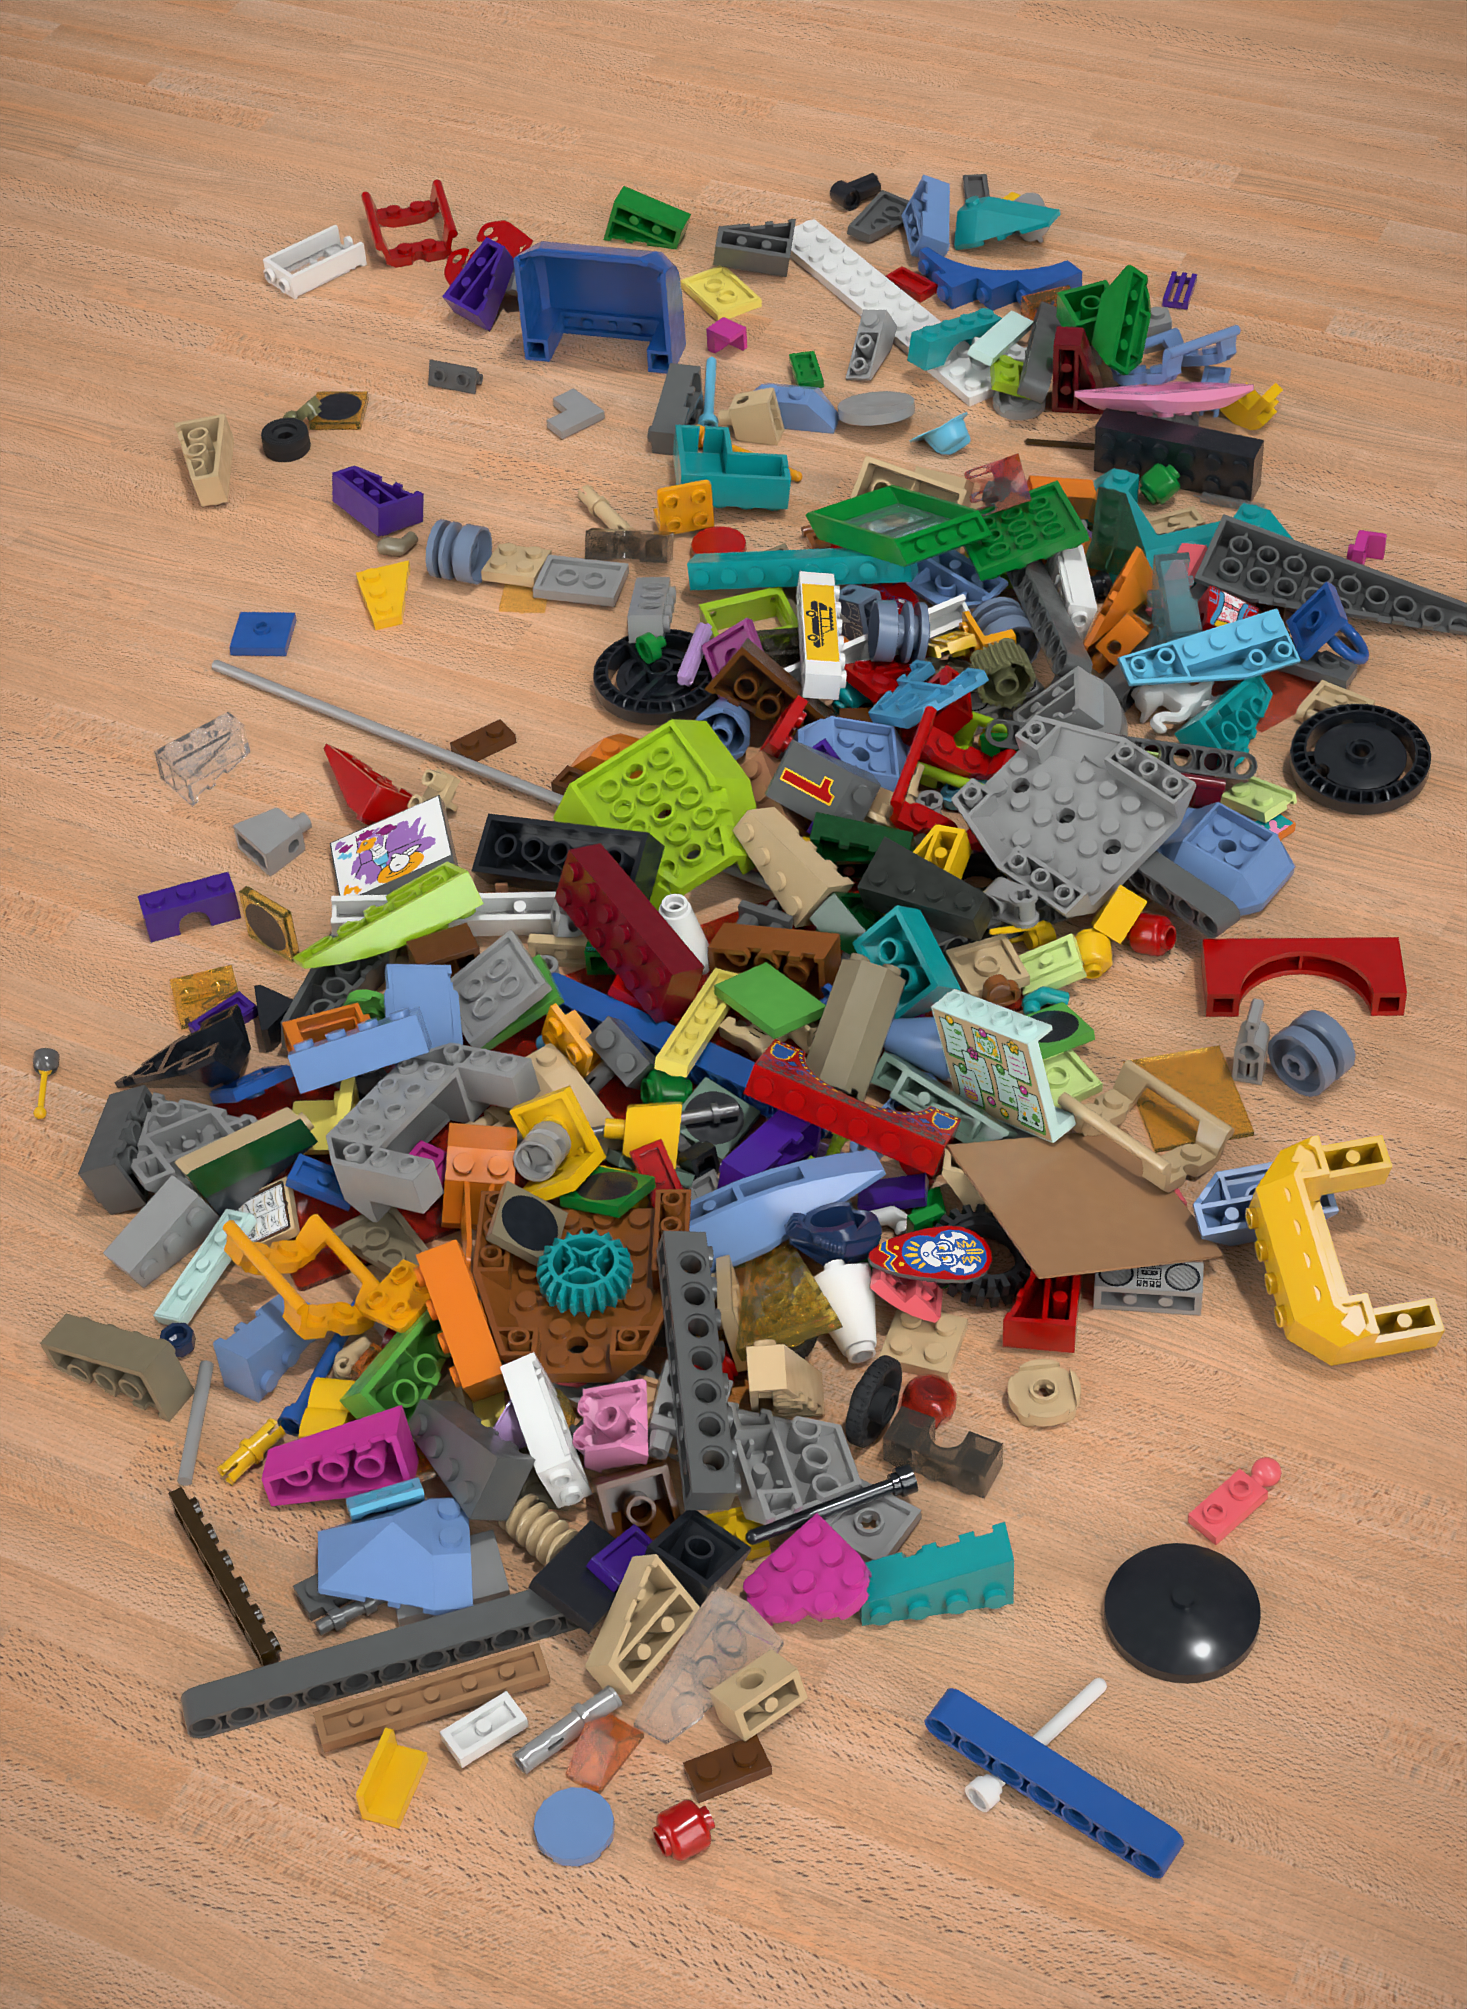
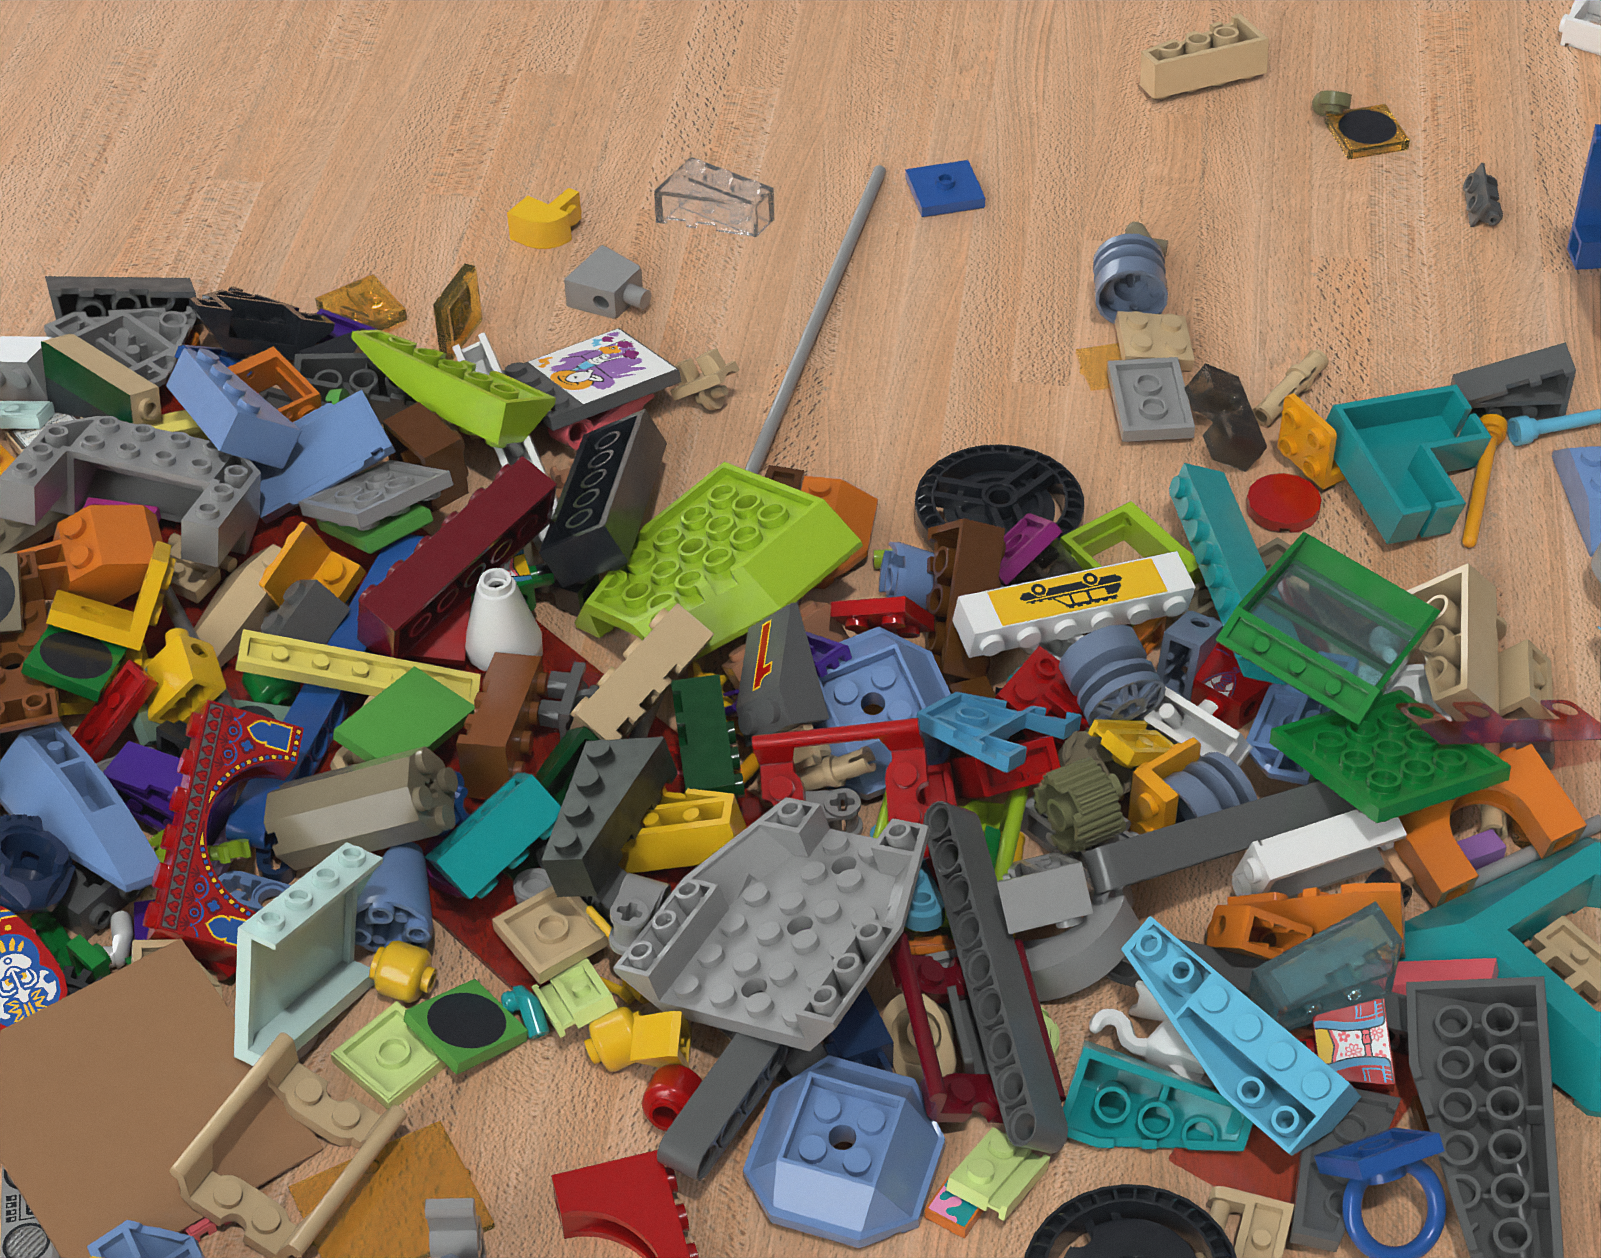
camera: 70 degrees right, 0 degrees up
(45, 1064) = (242, 233): hinge -> none
(162, 864) = (545, 224): none -> yellow brick
(166, 907) = (473, 243): dark purple arch -> none
(285, 439) = (1283, 106): black tyre -> none
(365, 790) = (719, 323): red wedge -> none
(374, 502) = (1194, 196): dark purple wedge -> none
(385, 593) = (1057, 252): yellow wing -> none
(484, 741) = (832, 399): reddish brown plate -> none
(542, 1151) = (96, 588): light grey wheel -> none
(576, 414) = (1479, 319): light grey tile -> none
(650, 647) = (1009, 471): green tile -> none
(651, 607) = (1094, 459): light grey brick -> none
(694, 654) = (1063, 515): lavender axle -> none
(754, 417) = (1549, 453): tan torso -> none
(1000, 990) = (505, 952): dark orange tile -> none
(1111, 532) = (1459, 863): clear green wedge -> none

